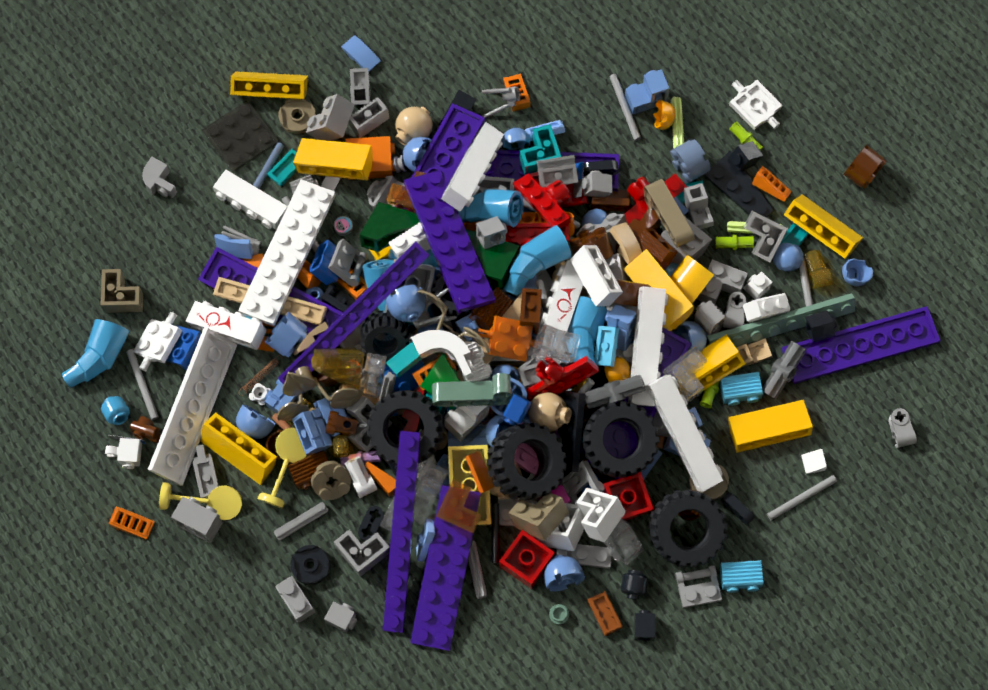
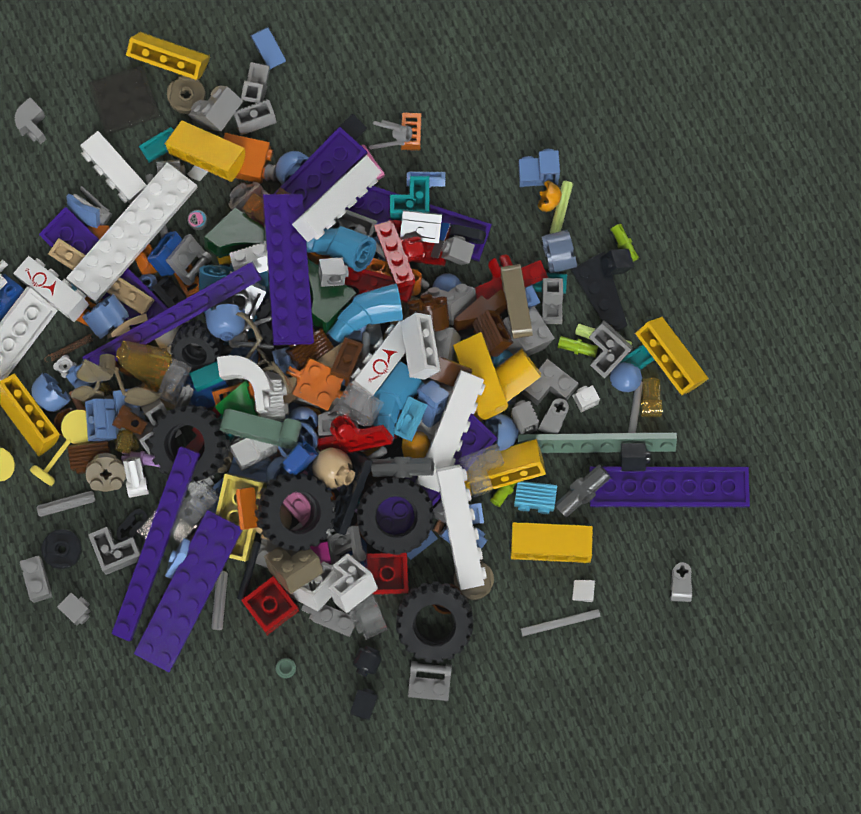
camera: 15 degrees right, 5 degrees up
(268, 165) = (142, 138): sand blue bar -> none
(384, 480) = (155, 483): orange slope -> none
(413, 123) = (296, 136): tan brick -> none
(453, 508) = (209, 540): clear orange brick -> none
(515, 135) = (393, 176): medium blue hair -> none
(561, 572) = (300, 628): medium blue cylinder -> none
(605, 613) = (330, 680): dark orange plate -> none
(616, 201) = (474, 271): reddish brown panel -> none
(625, 108) = (514, 177): light grey bar -> none
(629, 246) = (466, 318): tan slope -> none
(737, 508) = (492, 615): black beam -> none
(741, 575) = (474, 682): medium azure brick -> none
(755, 104) = (645, 211): white plate -> none
(755, 352) = (560, 464): tan slope -> none
(766, 307) = (585, 423): white brick -> none
(769, 183) = (633, 298): orange slope -> none
(863, 273) = (688, 405): medium blue hair -> none
(865, 167) = (732, 306): reddish brown brick -> none

